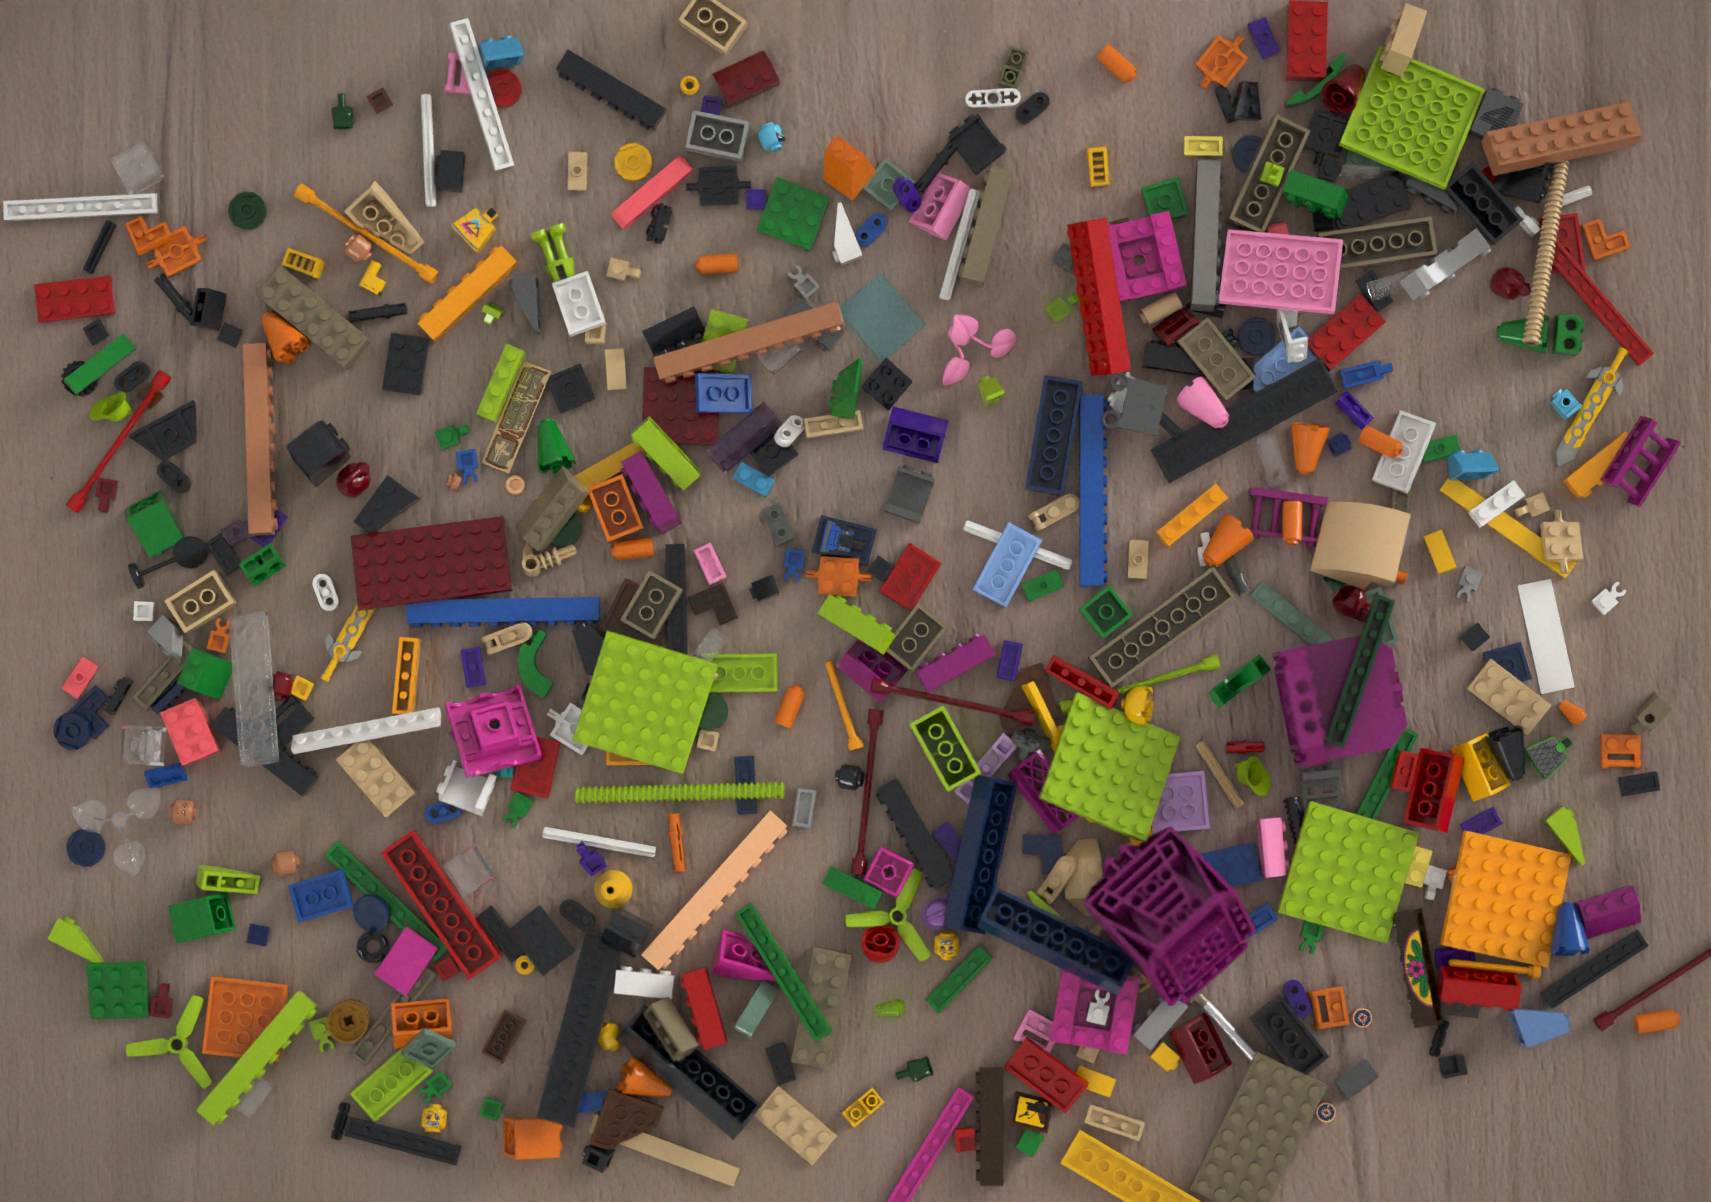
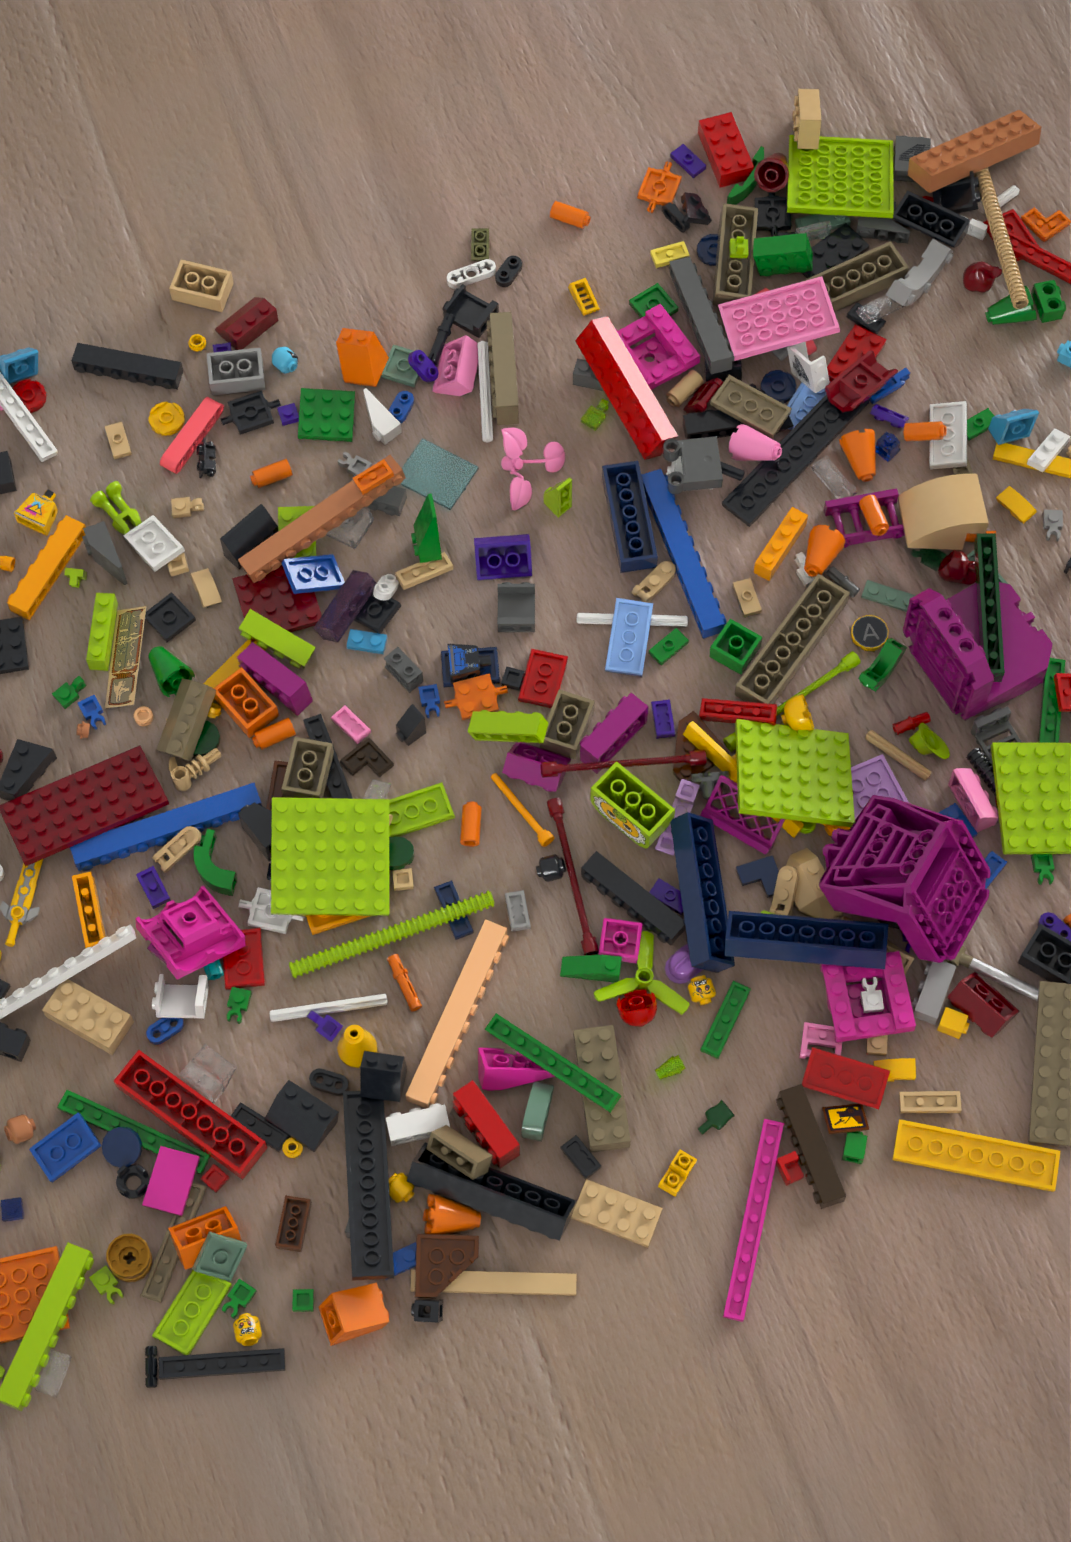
camera: 20 degrees left, 20 degrees down
(811, 323) = (373, 476): none -> orange plate
(887, 384) = (461, 523): black hinge -> none
(1242, 638) = (869, 633): none -> black tile
(1321, 222) = (796, 277): black plate -> none
(1335, 370) = (858, 383): none -> dark red piece

